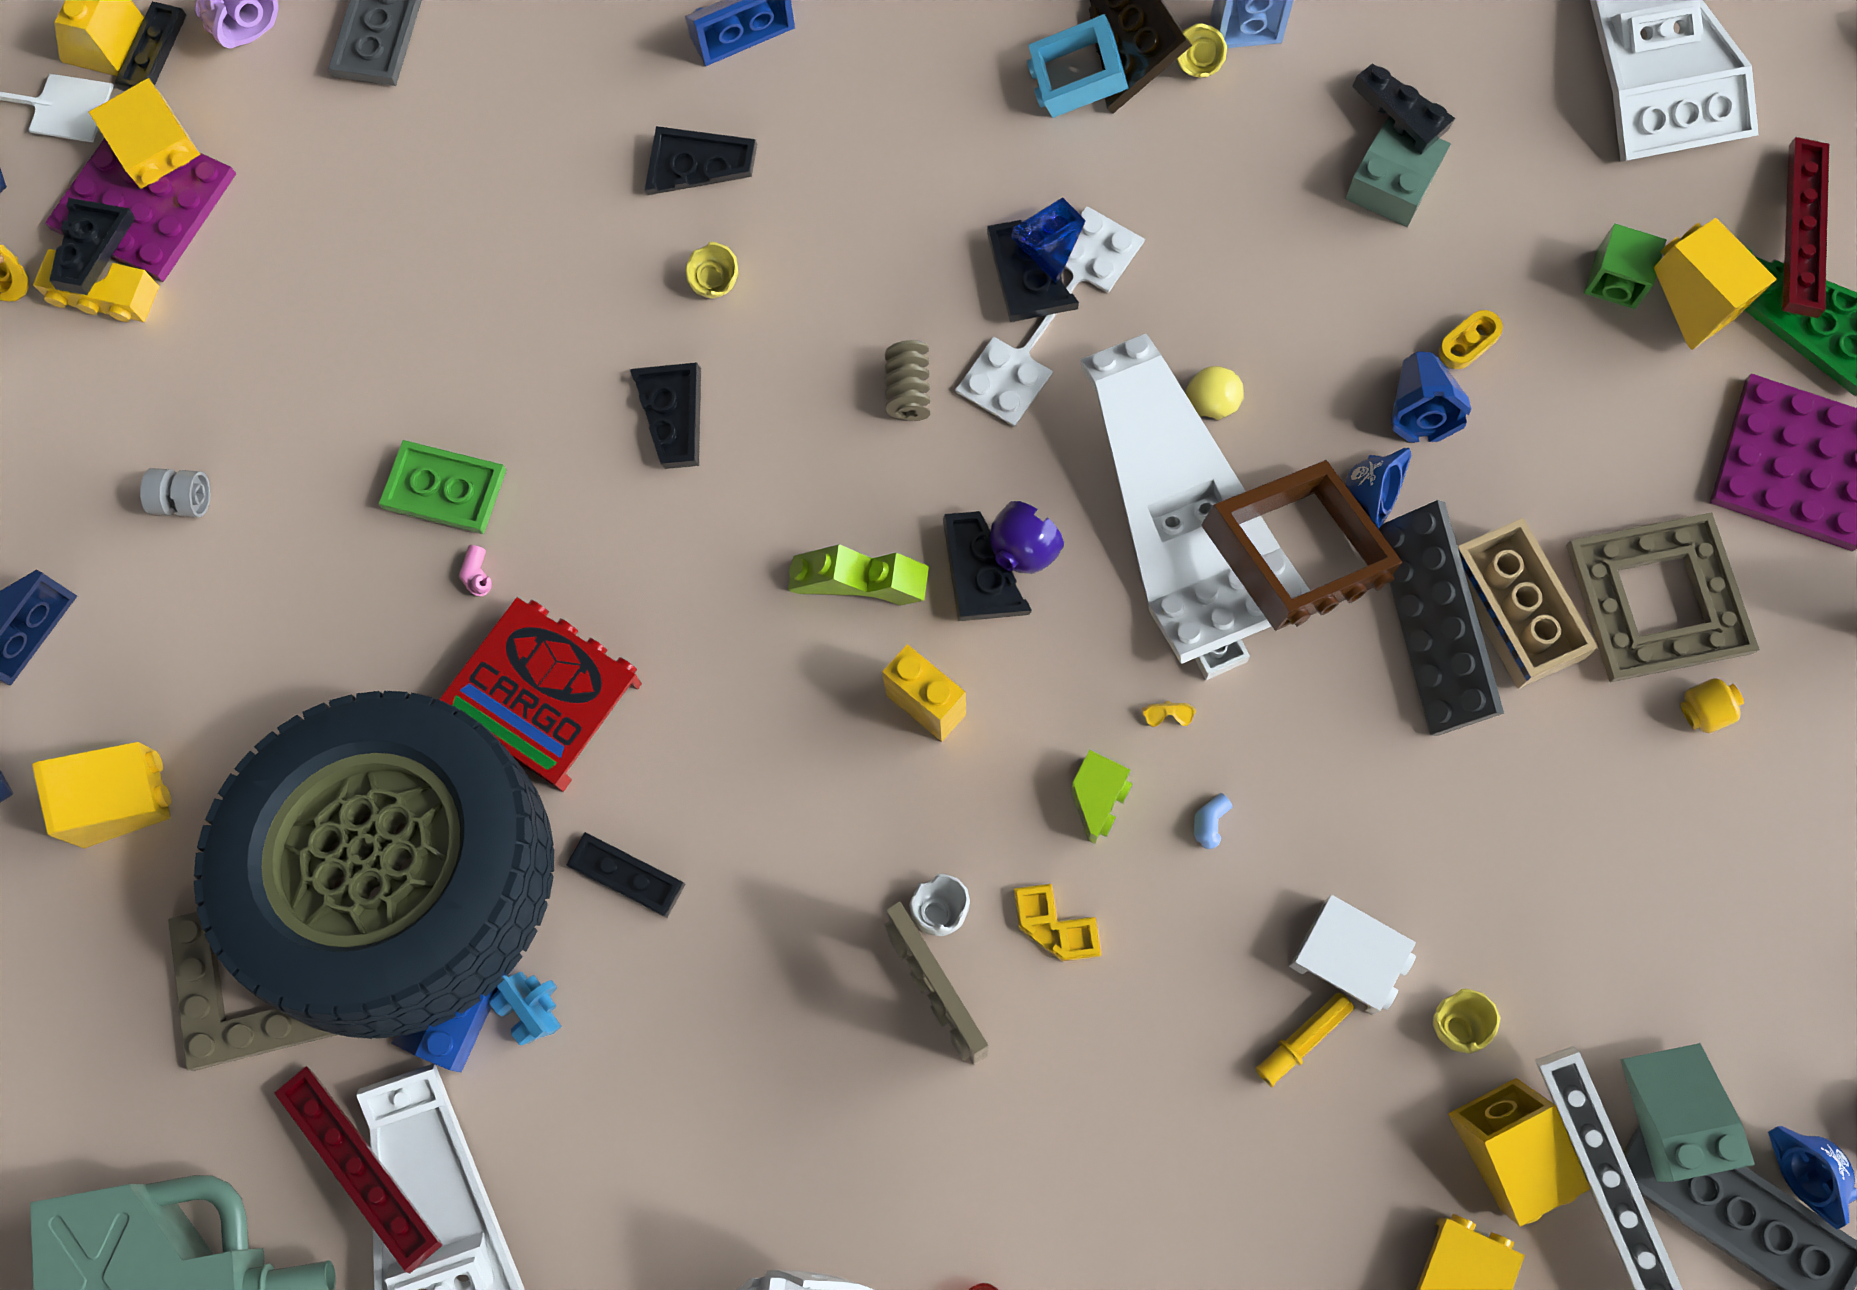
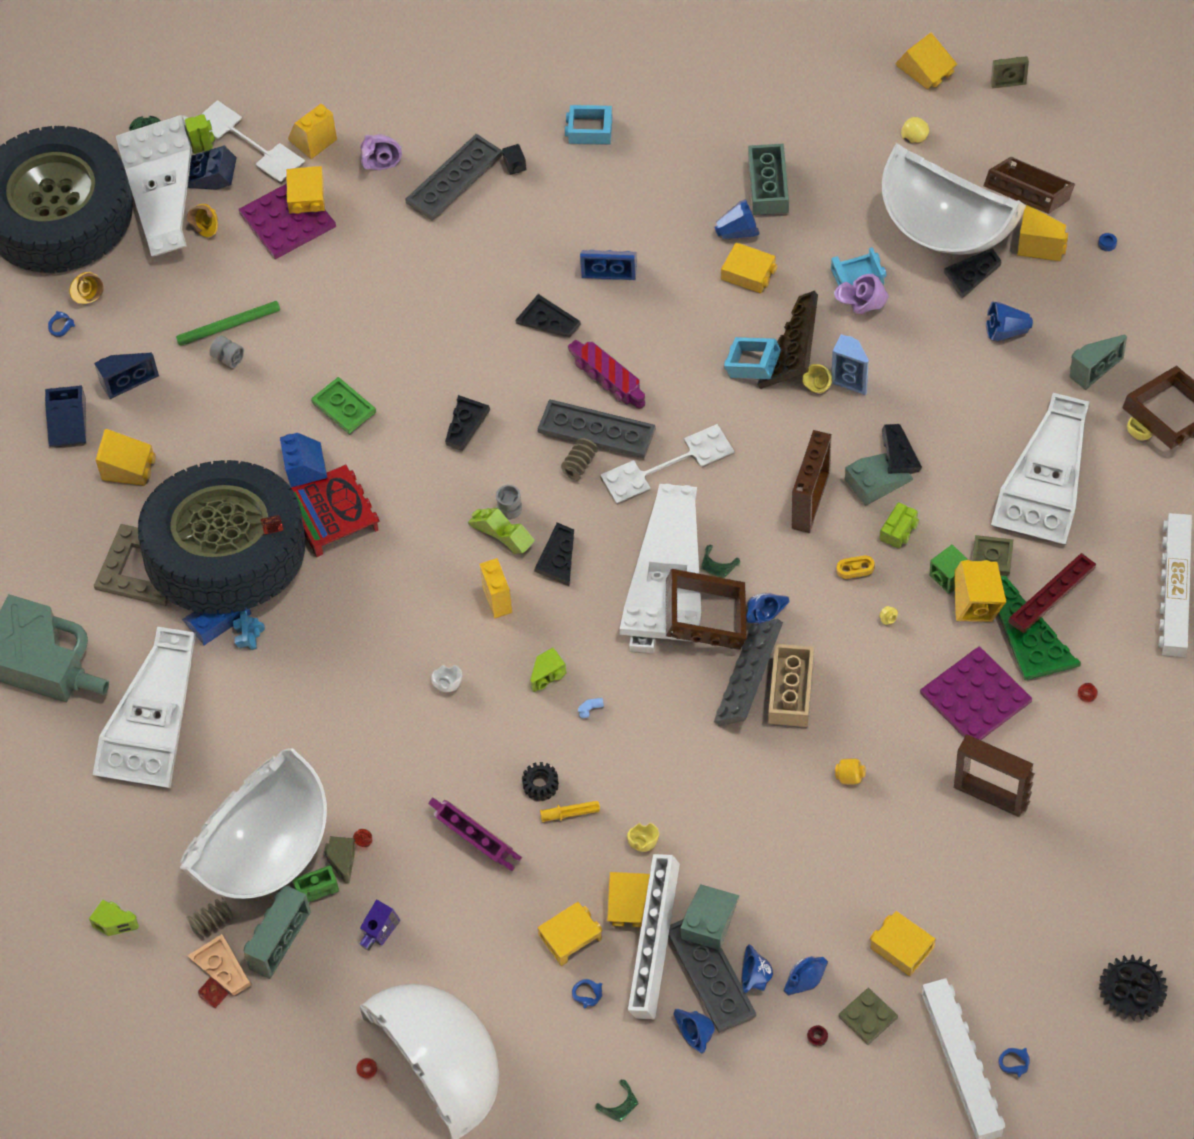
camera: 30 degrees right, 15 degrees down
(88, 243) = (254, 225): black wing -> none
(122, 294) = (253, 256): yellow arch -> none
(145, 438) = (227, 323): none -> bright green axle
(151, 45) = (332, 151): black tile -> none
(358, 1170) = (141, 653): dark red plate -> none
(434, 627) = (302, 459): none -> blue slope
(468, 807) = (271, 524): none -> clear red slope
(472, 574) = (333, 447): bright pink arm -> none
(626, 874) = (322, 602): black tile -> none
(712, 270) = (522, 369): light yellow hair -> none
(840, 518) = (509, 501): none -> light grey wheel
(857, 206) = (608, 372): none -> magenta hinge
(900, 309) = (602, 428): none -> dark grey plate
(930, 976) = (420, 693): dark tan plate -> none
(1024, 284) = (665, 440): black wing -> none
(1024, 540) = (582, 548): dark purple cylinder -> none
(1050, 236) = (686, 427): clear blue wing -> none
(1064, 939) = (487, 709): yellow tile -> none
(1157, 713) = (607, 656): yellow piece -> none
(1177, 1184) = (474, 832): none -> magenta hinge
(1215, 392) = (719, 532): light yellow hair -> none
(1241, 998) = (543, 791): none -> black tyre
(1244, 458) = (717, 569): none -> clear green helmet
(1326, 174) = (813, 479): none -> reddish brown window
(1355, 954) = (614, 787): white panel -> none
(1428, 400) = (811, 581): blue cone -> none
(1491, 233) = (898, 525): none -> lime brick
(1579, 395) = (888, 615): none -> light yellow plate
(1662, 205) = (994, 550): none -> olive plate
(1696, 540) = (878, 747): dark tan plate -> none

